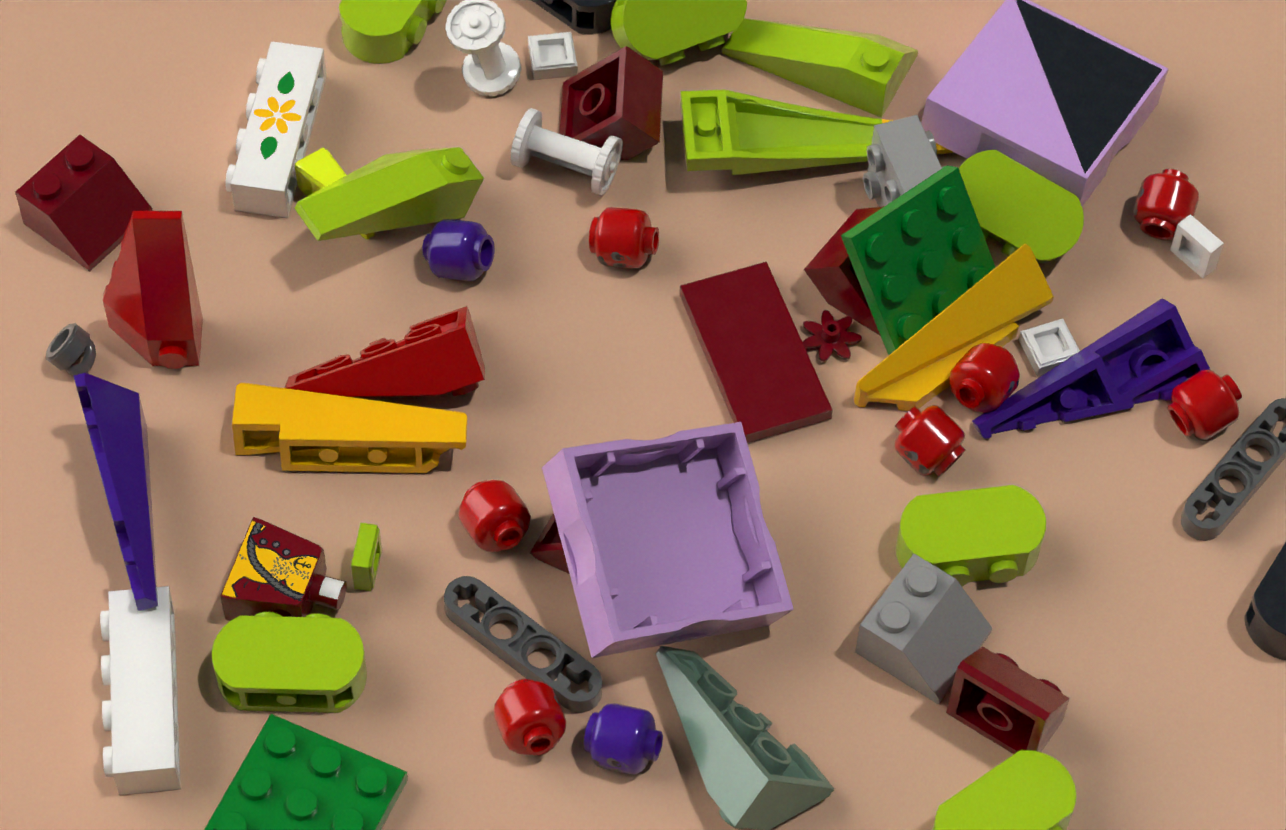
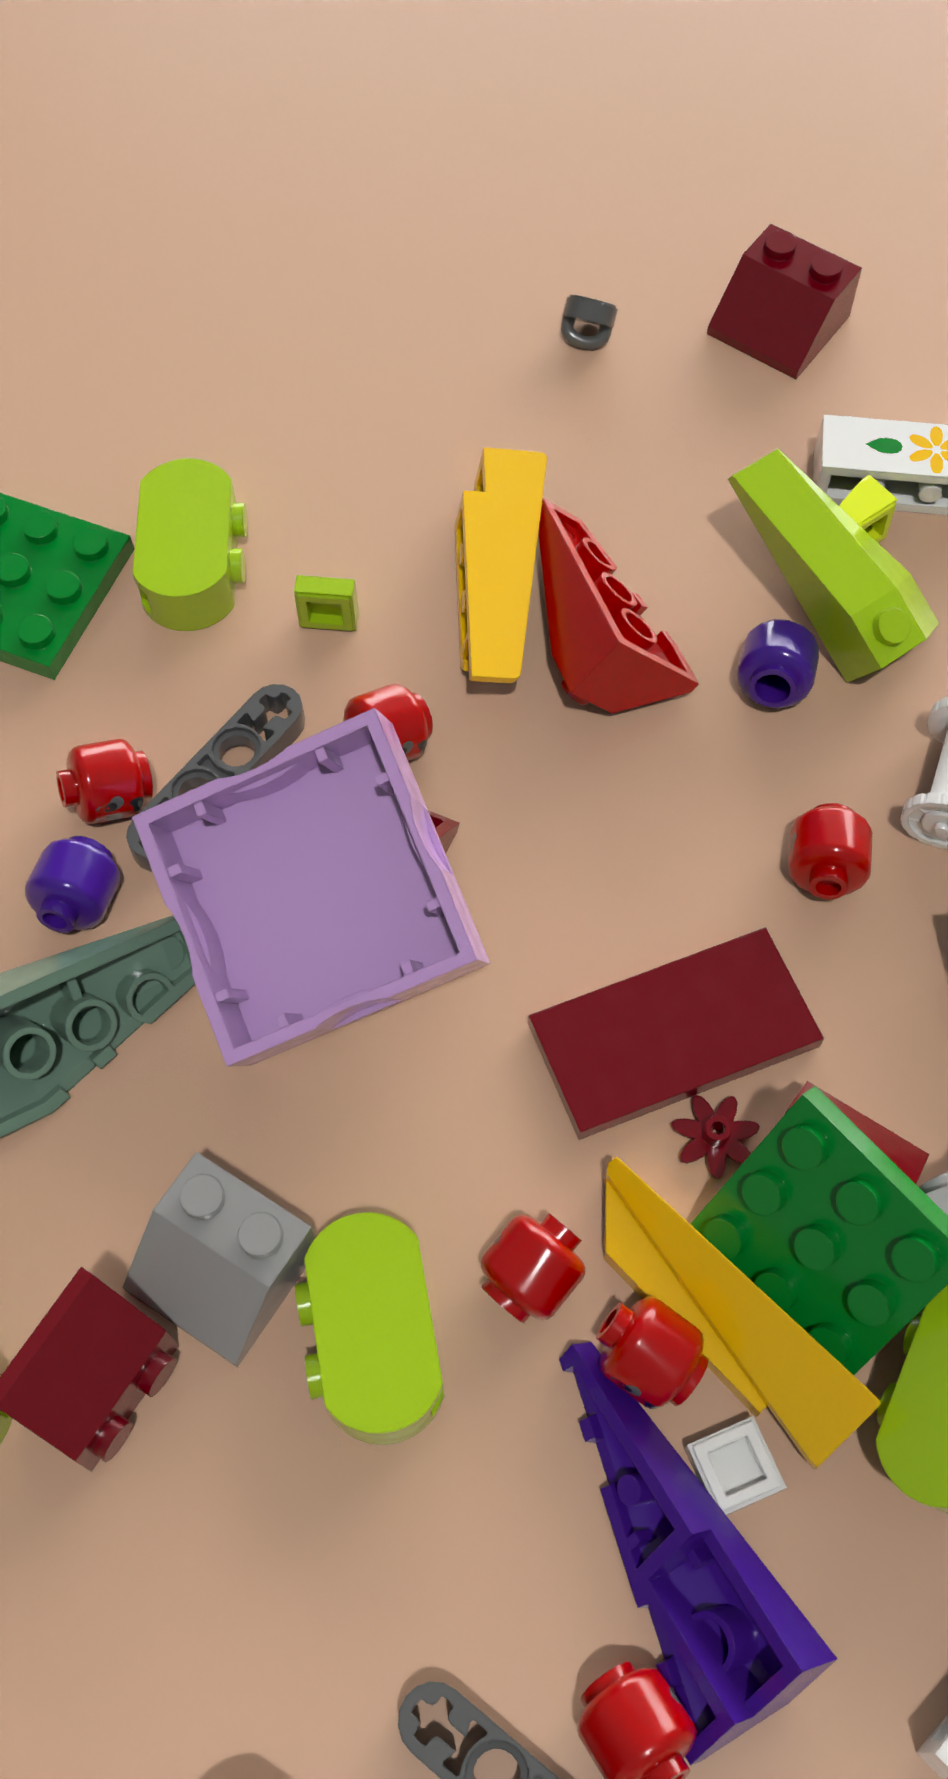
camera: 90 degrees right, 5 degrees up
(122, 455) = (438, 357): dark purple wedge -> none
(142, 694) = (158, 420): white brick -> none
(155, 292) = (633, 353): red wedge -> none
(279, 575) = (299, 522): torso -> none

